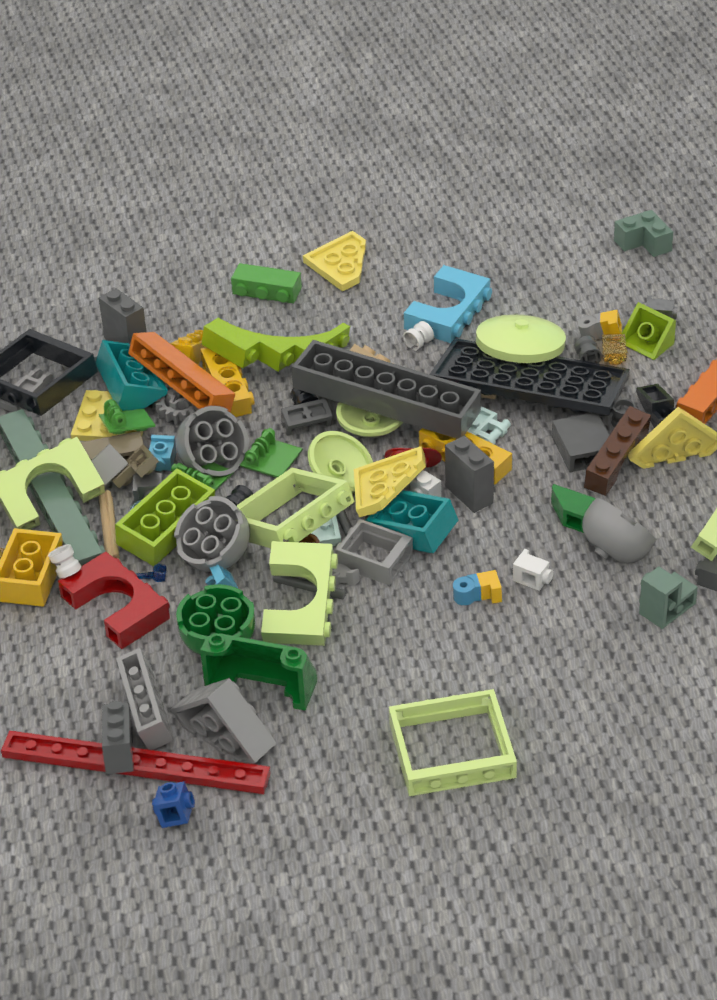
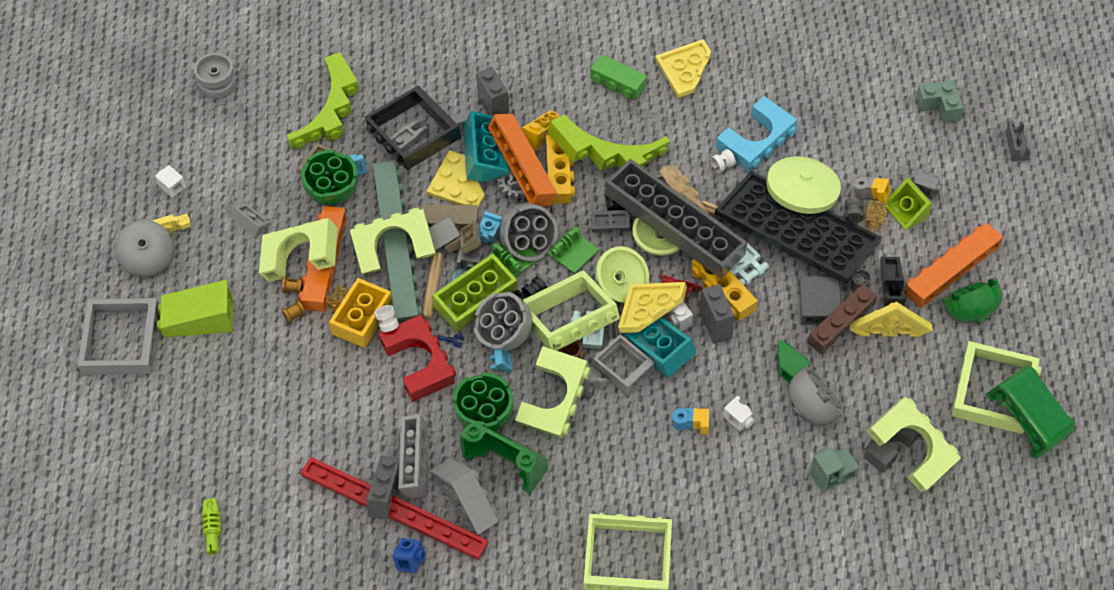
camera: 15 degrees right, 15 degrees up
(119, 421) = (469, 191): bright green hinge -> none

